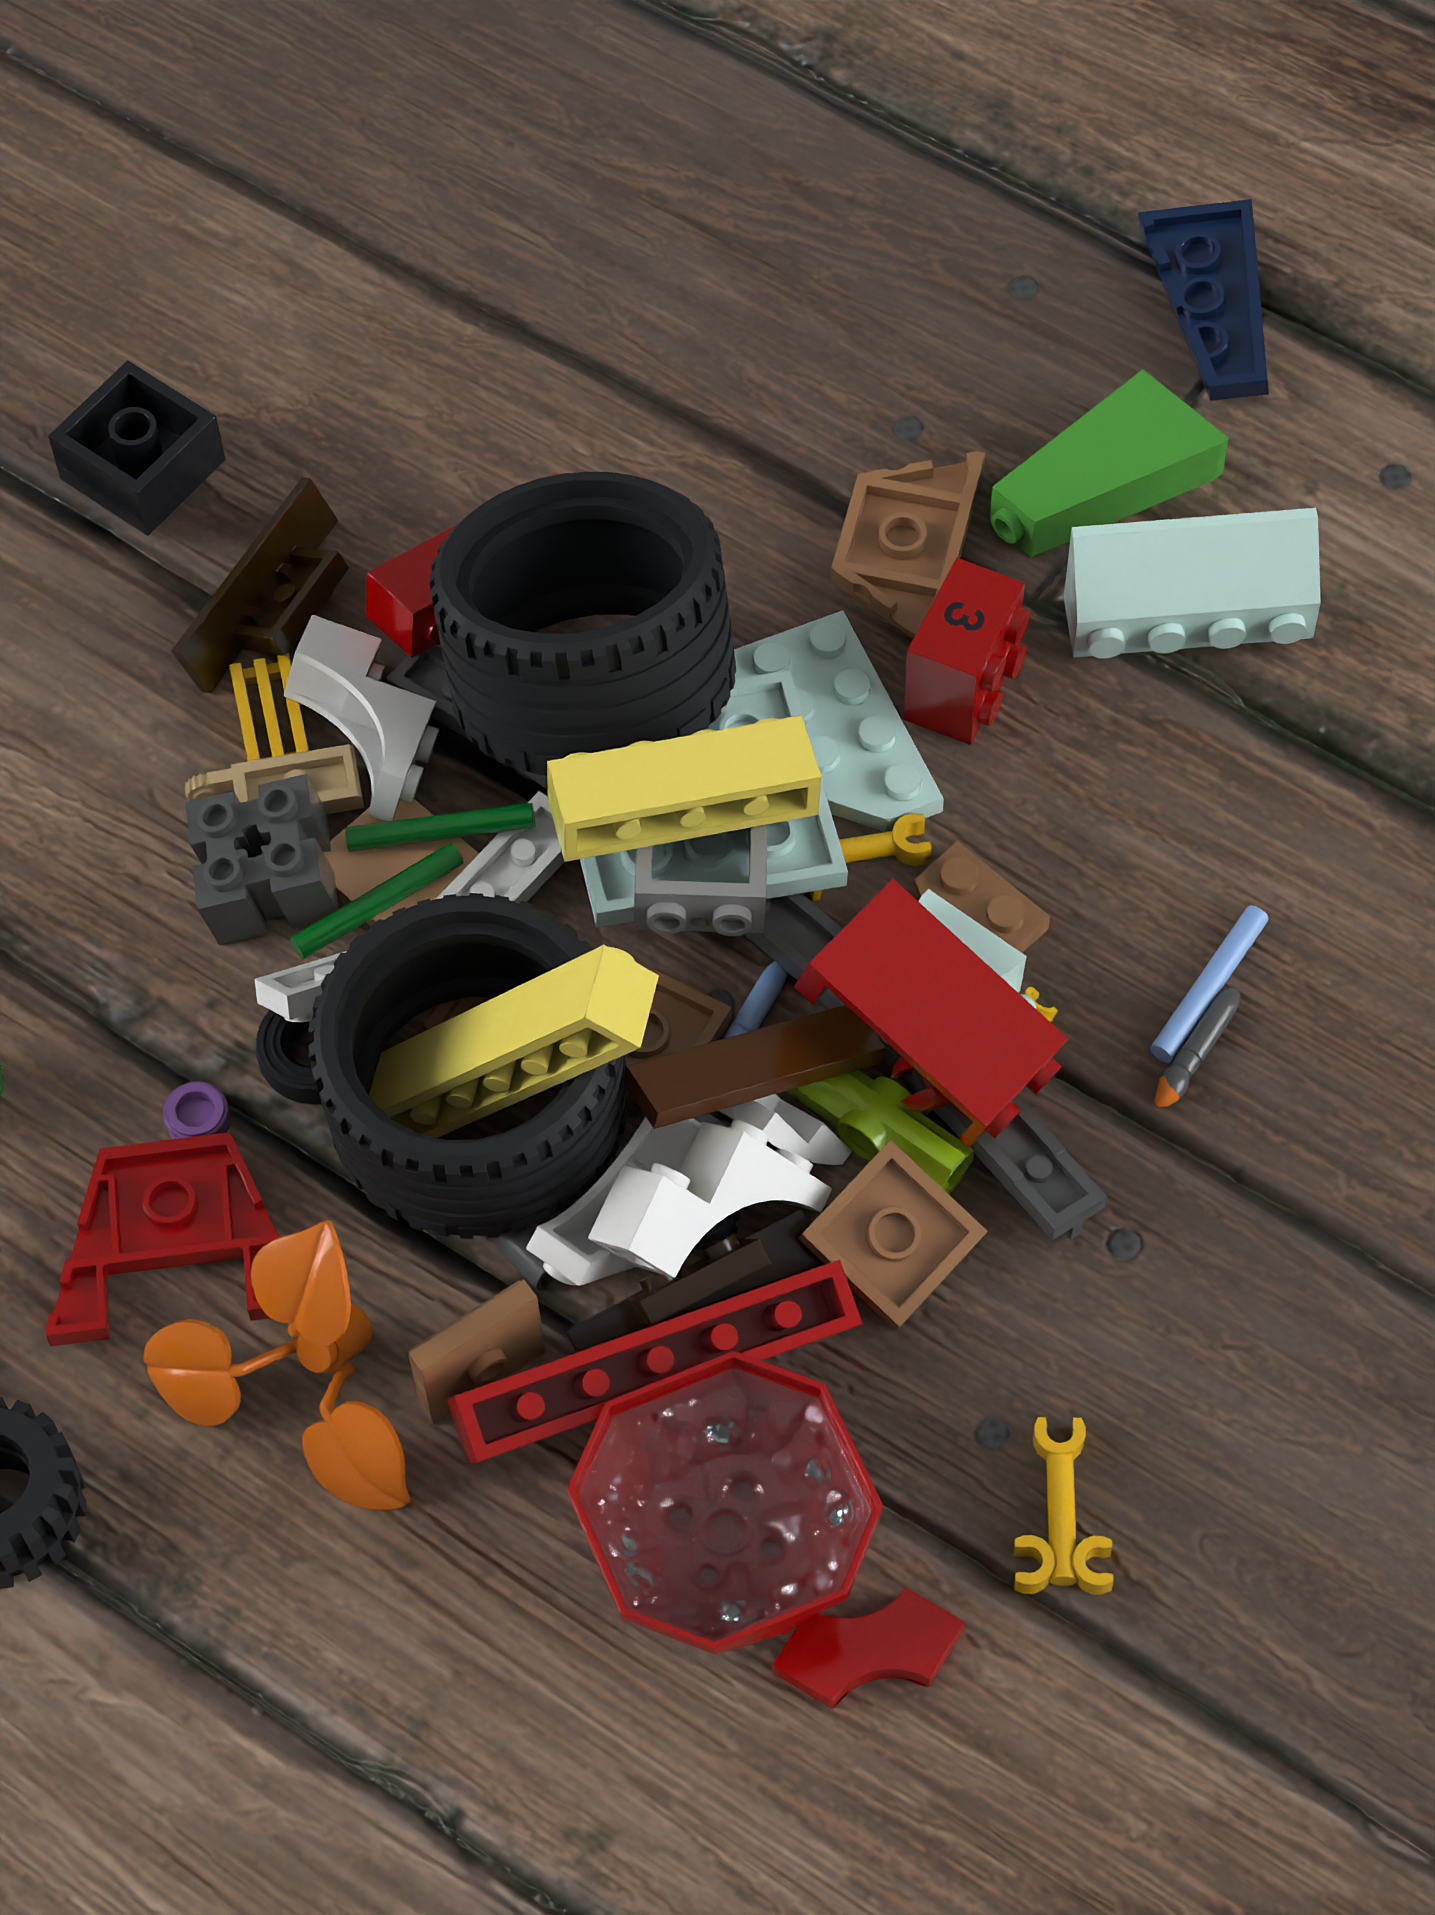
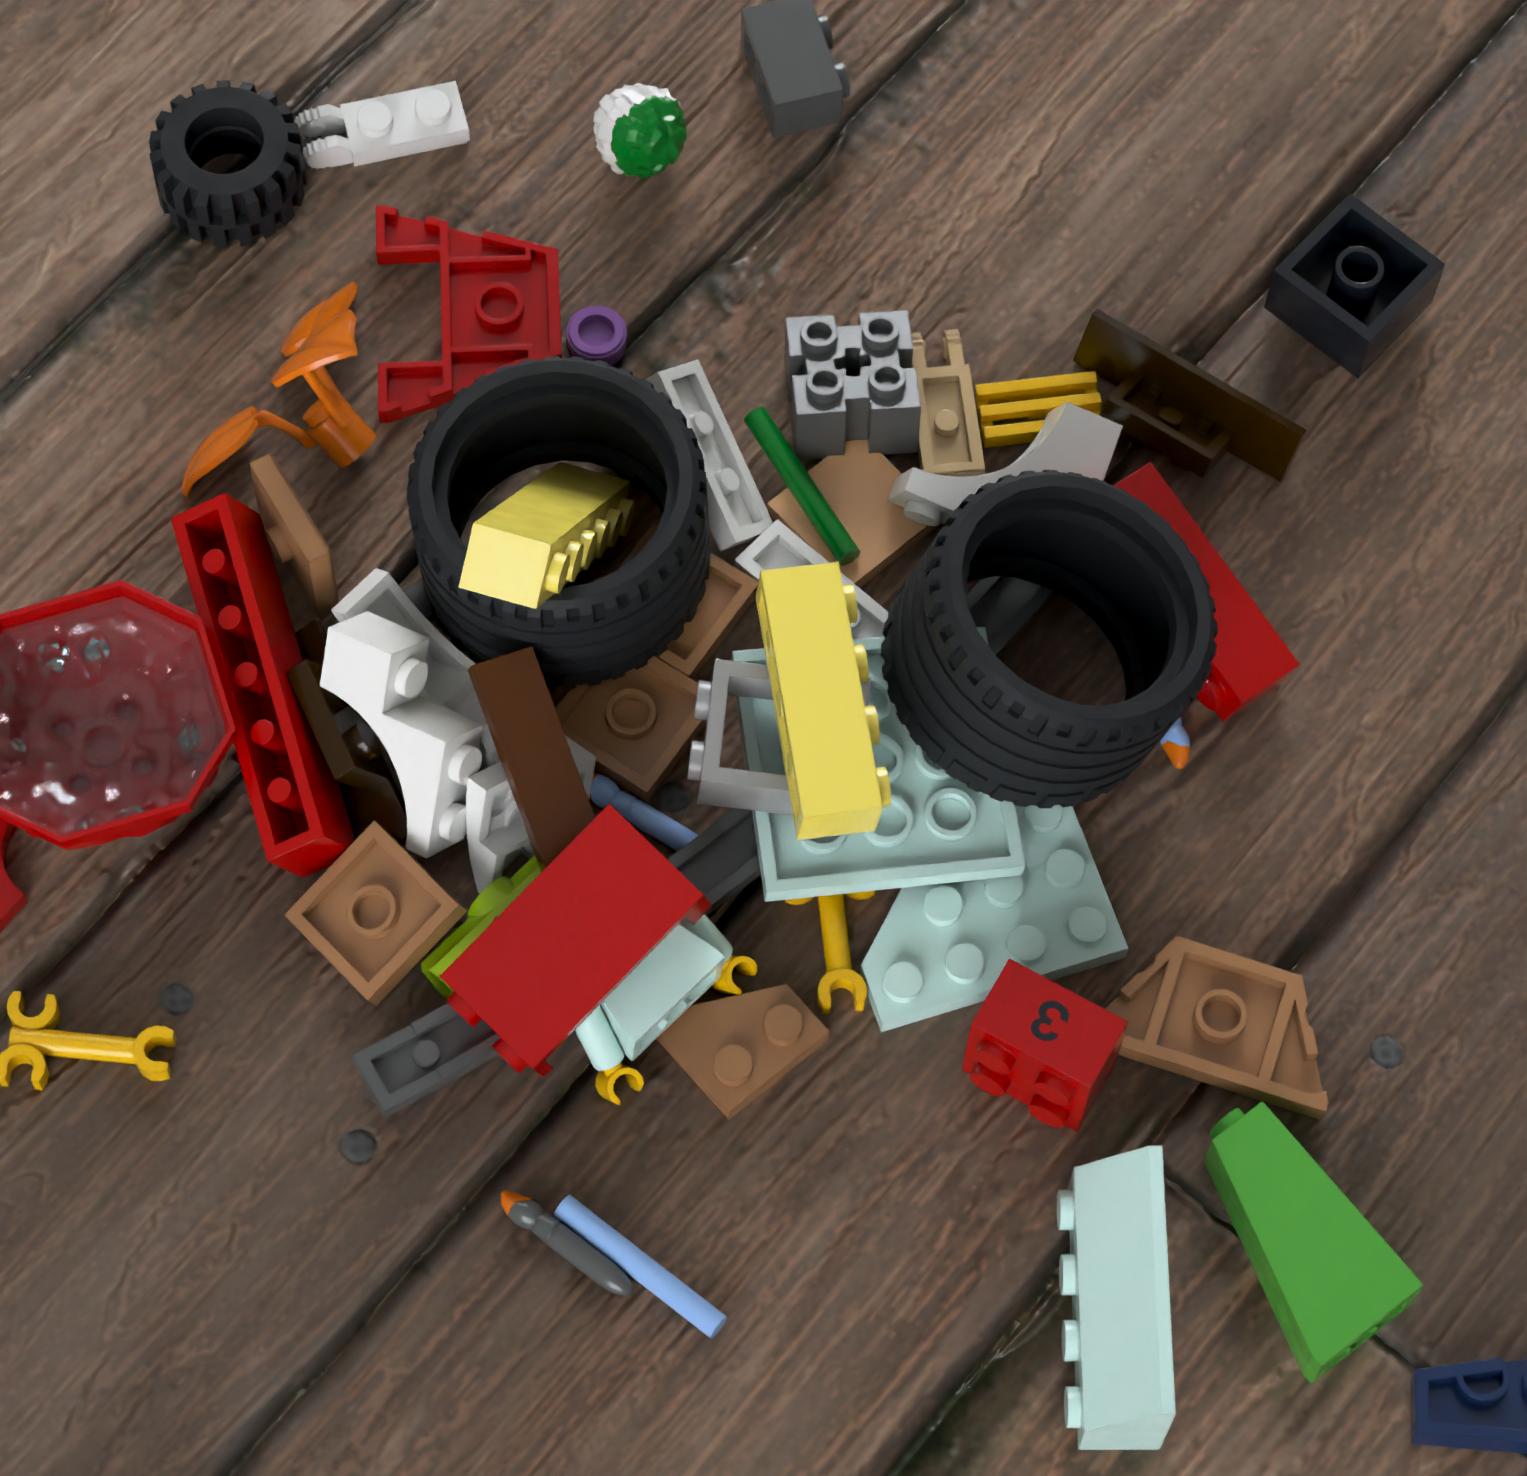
camera: 90 degrees right, 5 degrees up
(440, 827) = (876, 541): green bar -> none

